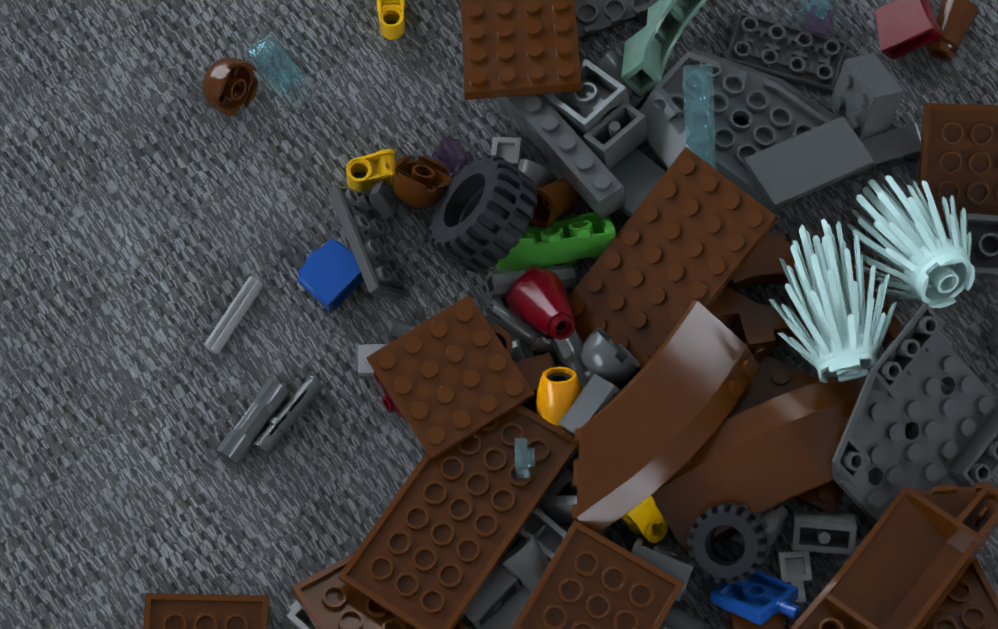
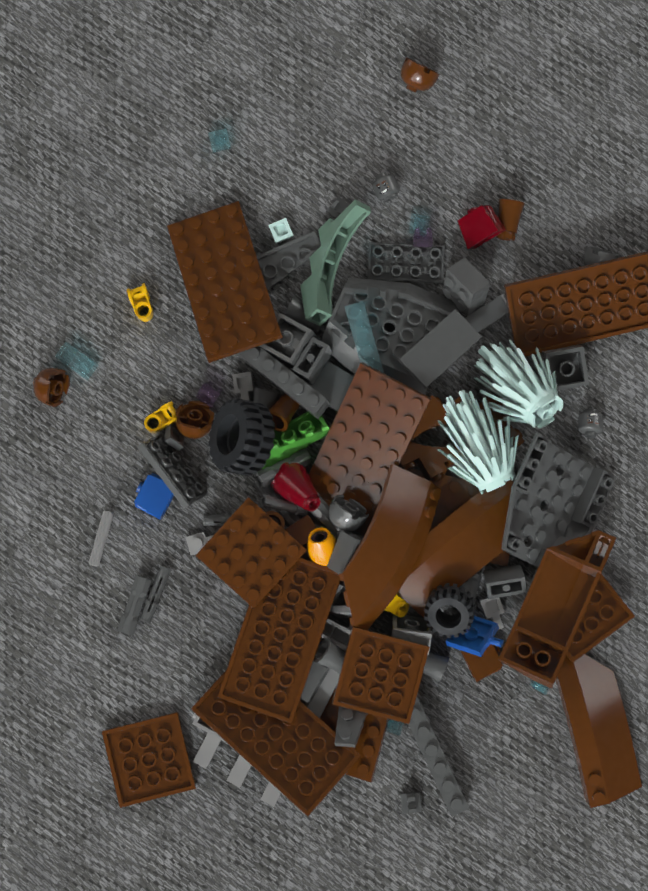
camera: 20 degrees left, 15 degrees up
(523, 458) = (311, 595): clear light blue plate -> none

